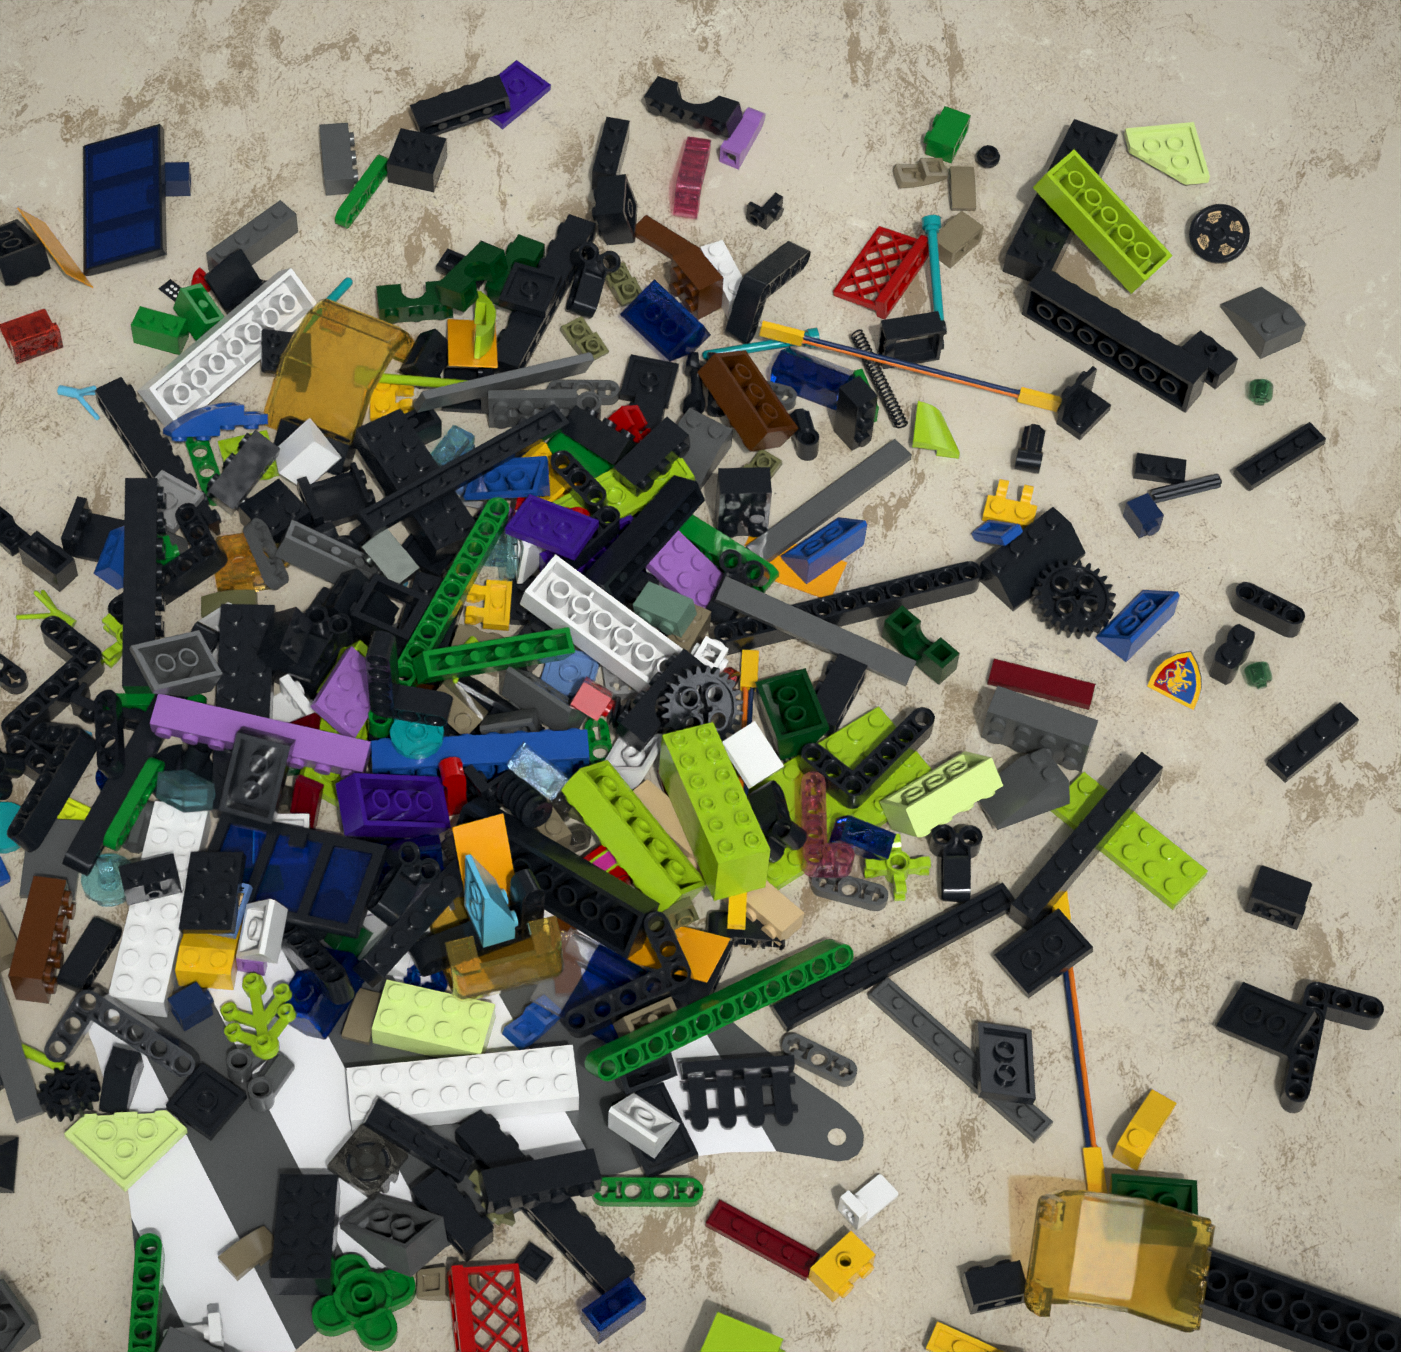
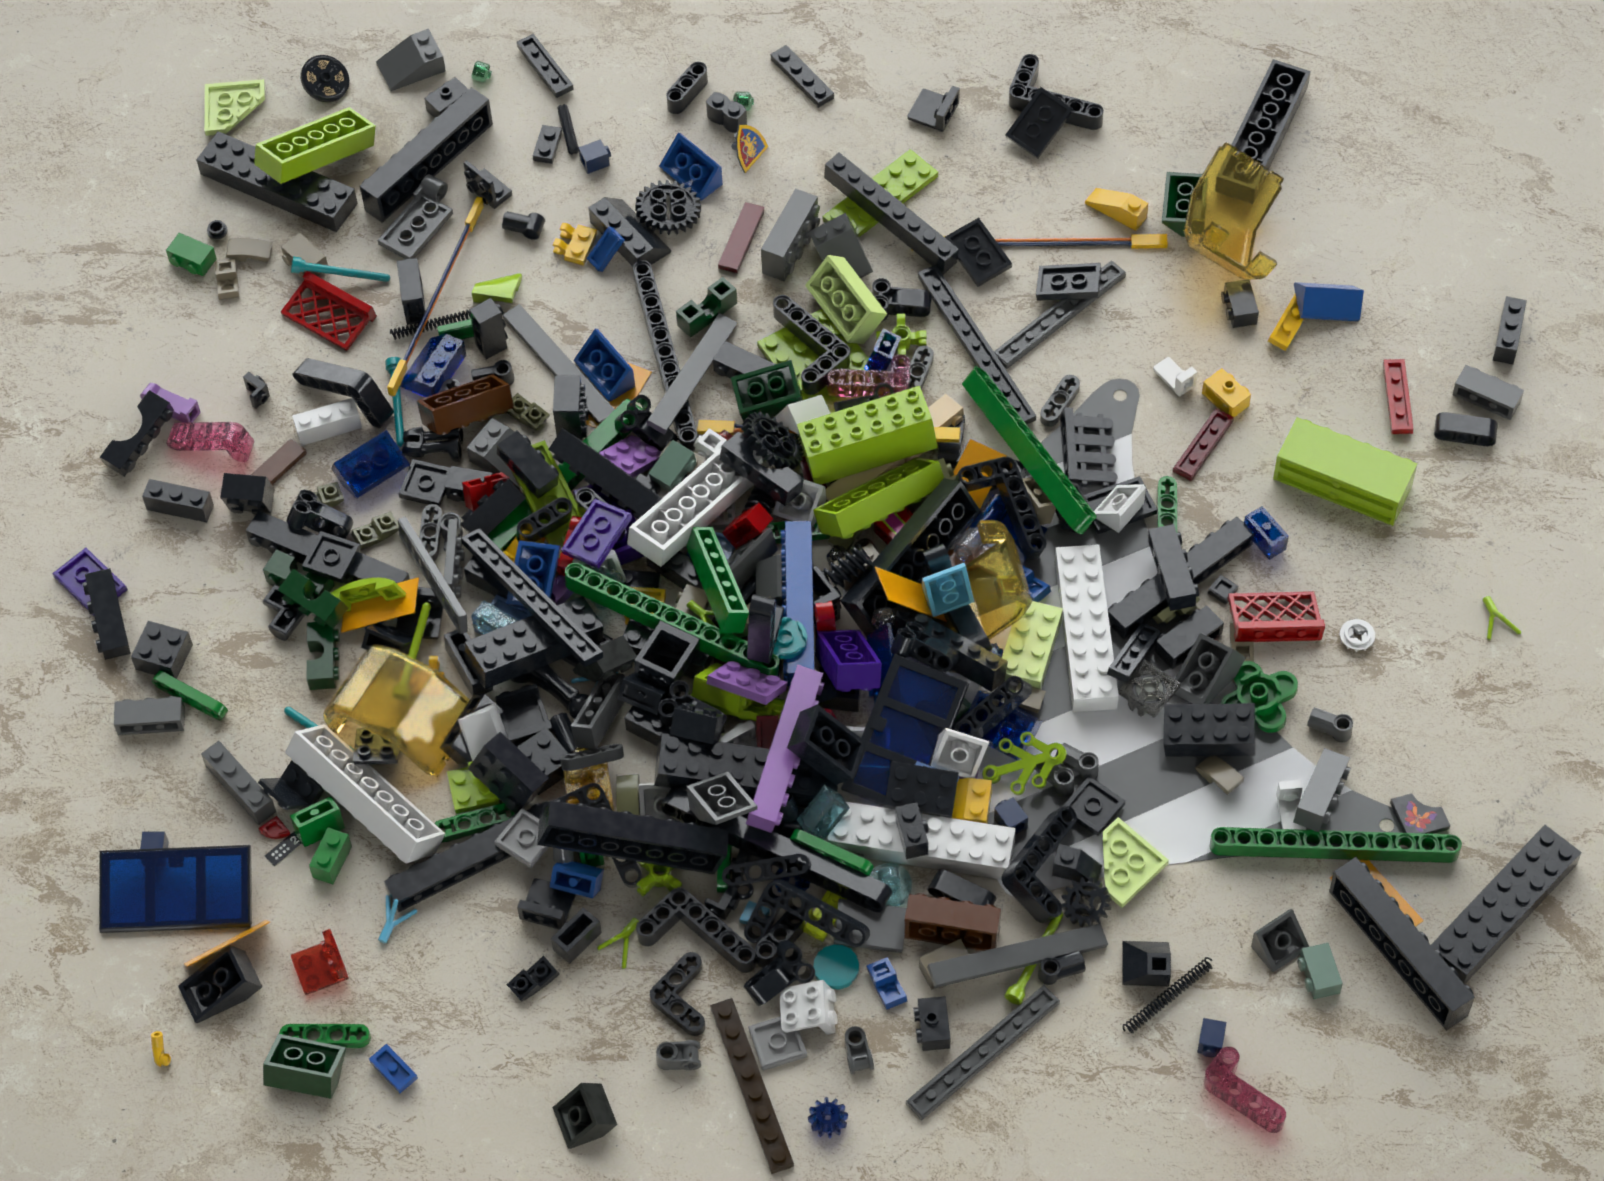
camera: 80 degrees left, 0 degrees up
(210, 419) = (442, 806): blue slope -> none
(537, 771) = (828, 550): clear light blue brick -> none
(696, 282) = (332, 438): reddish brown brick -> none
(1061, 349) = (426, 195): none -> dark grey hinge

